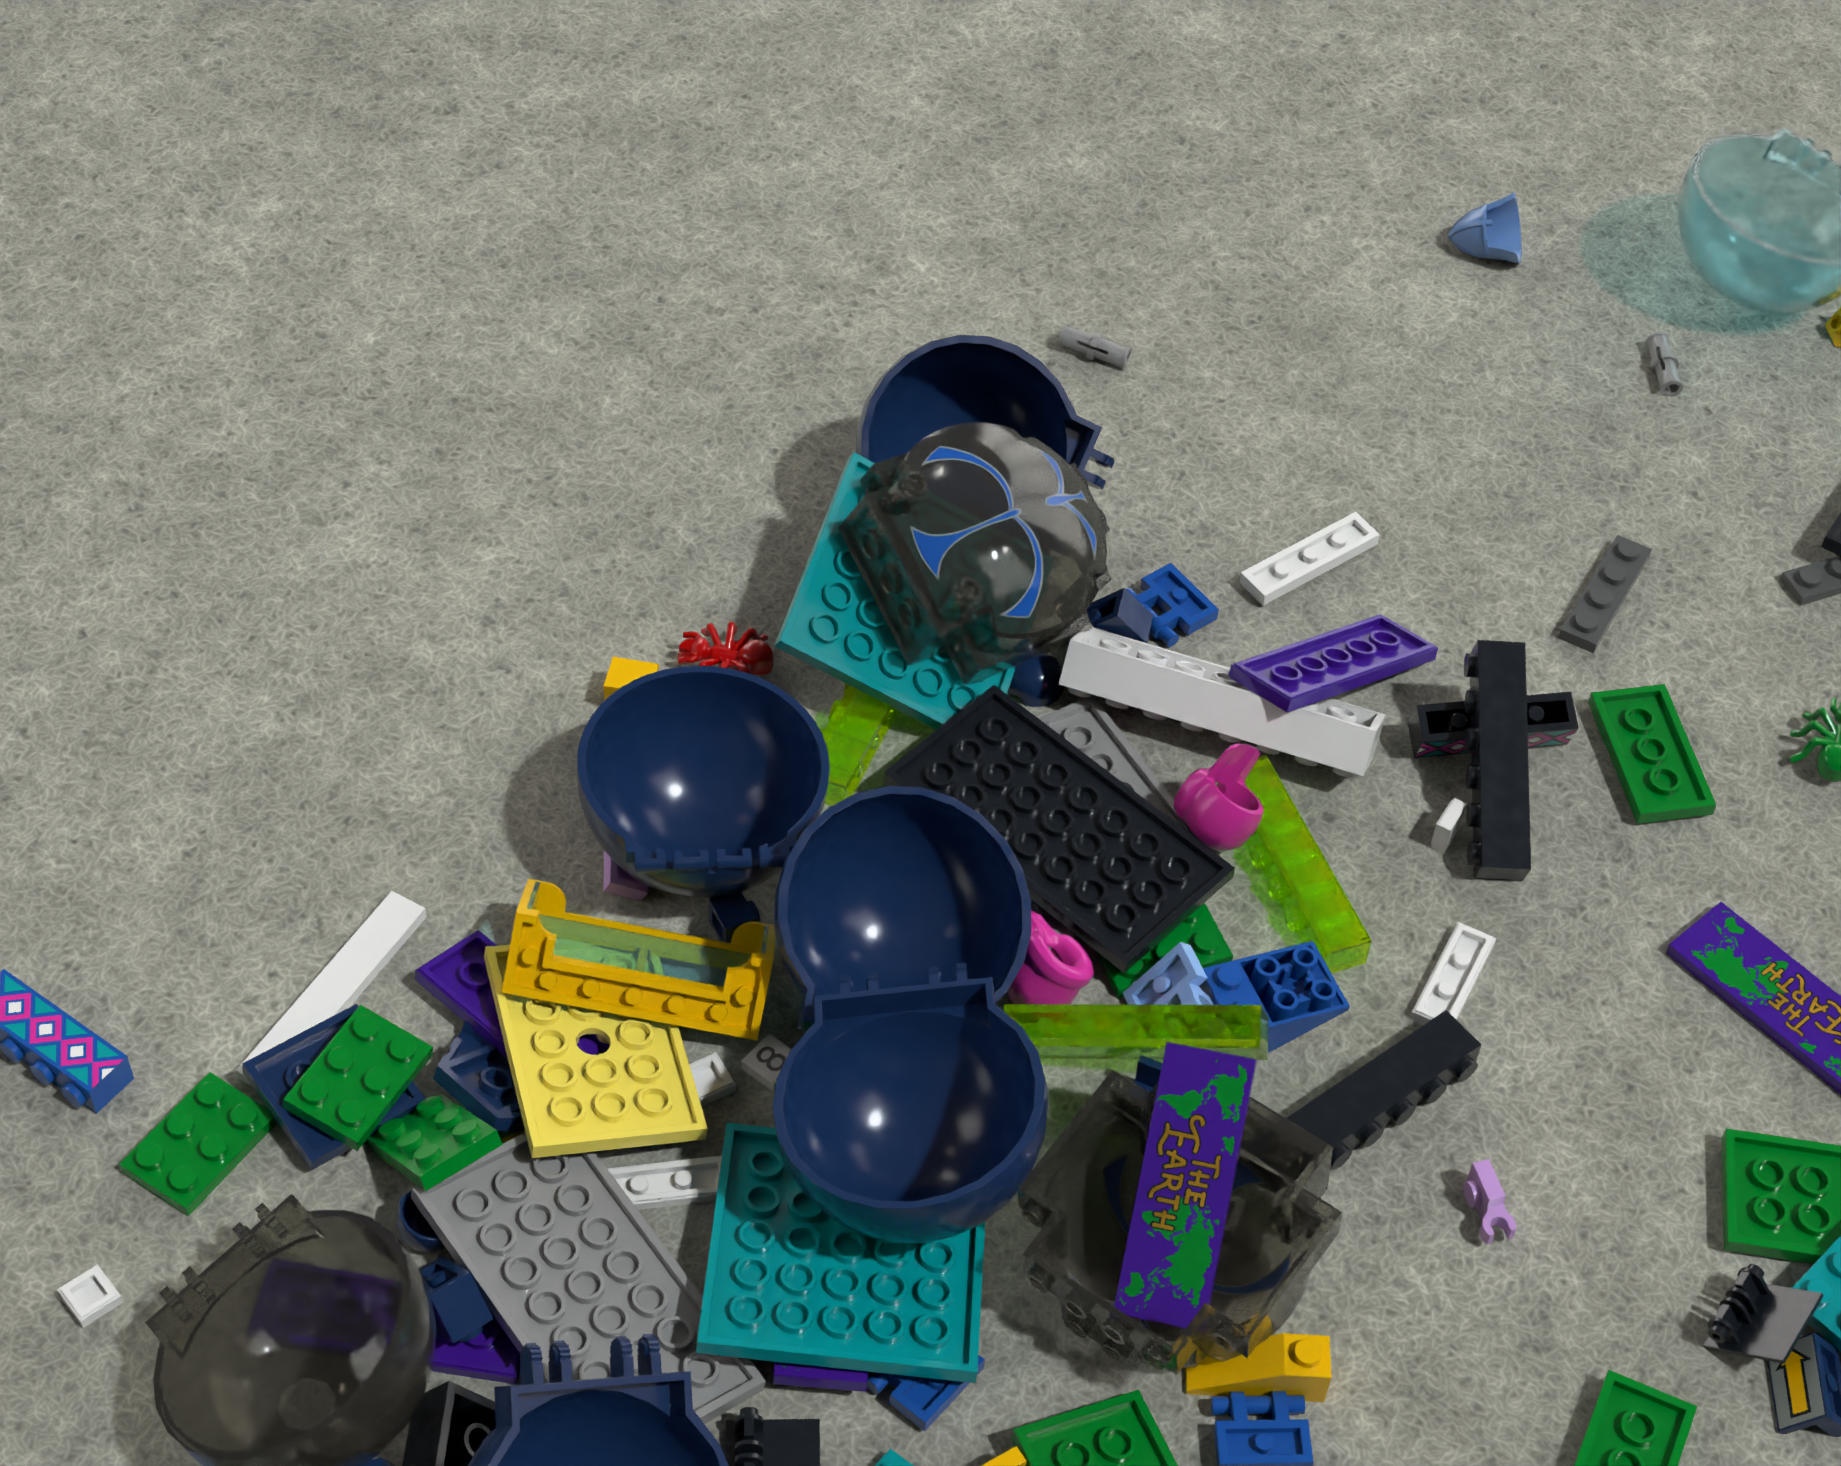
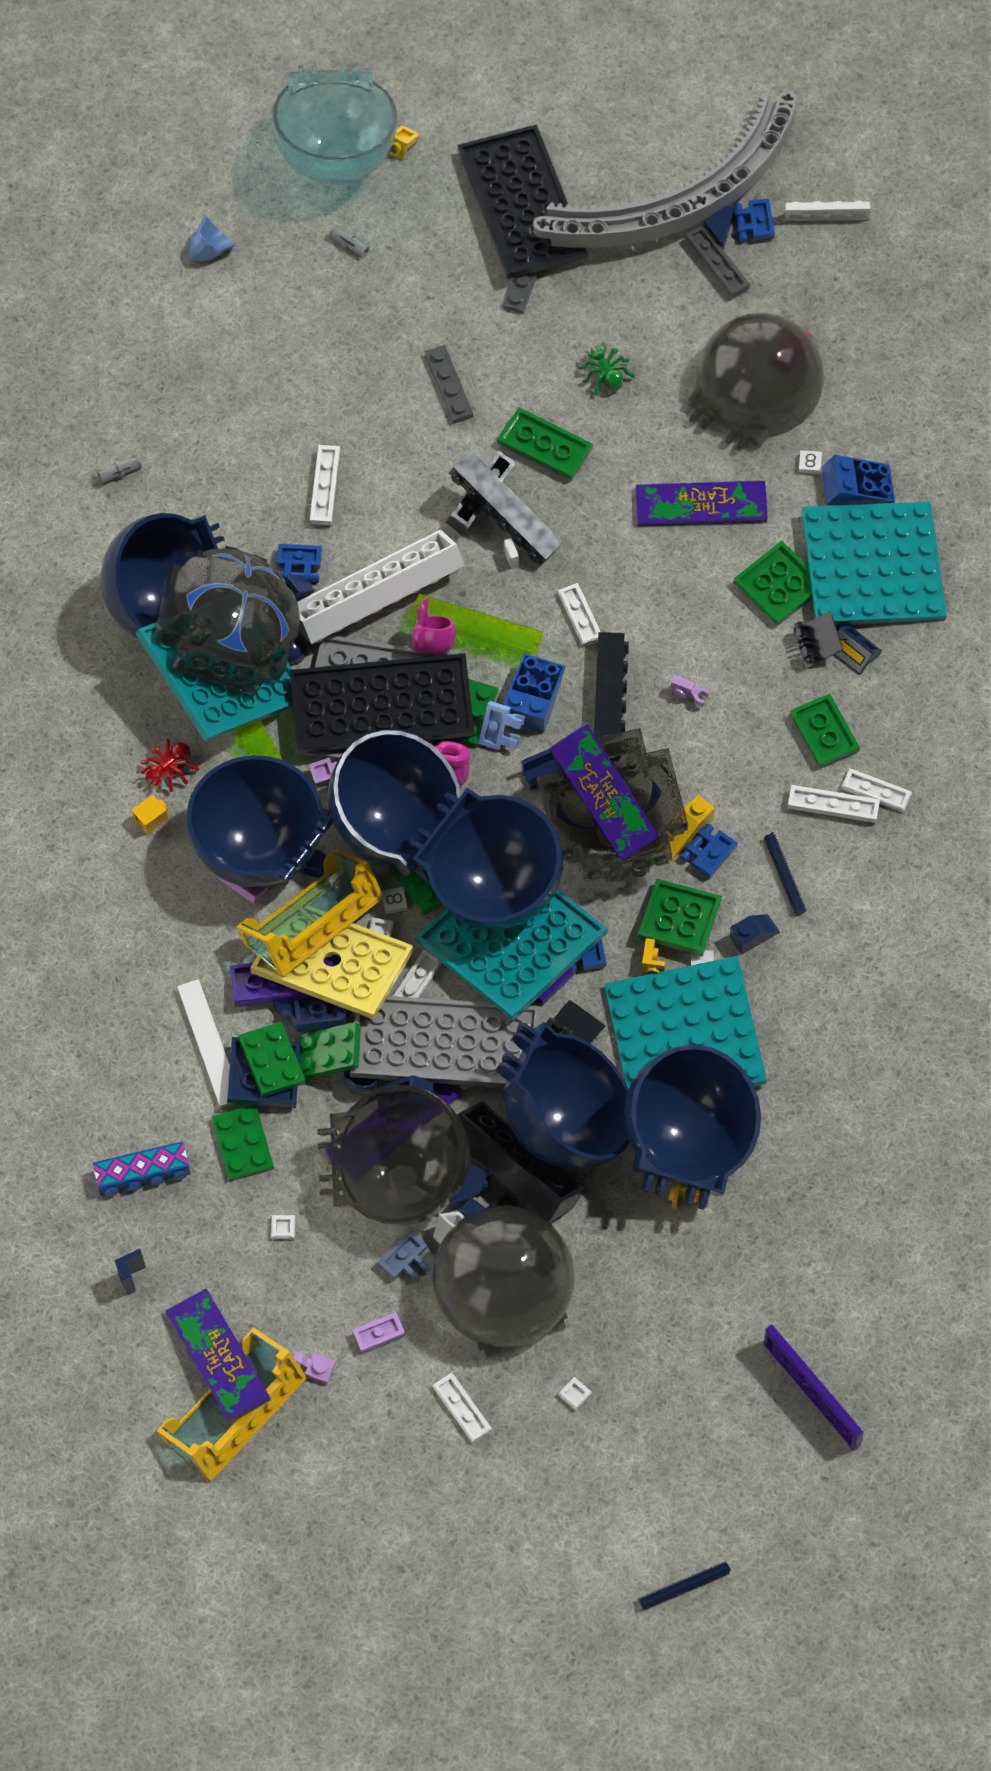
camera: 45 degrees left, 15 degrees up
(1139, 1030) = (515, 750): clear neon green brick -> none
(1332, 662) = (399, 527): dark purple tile -> none

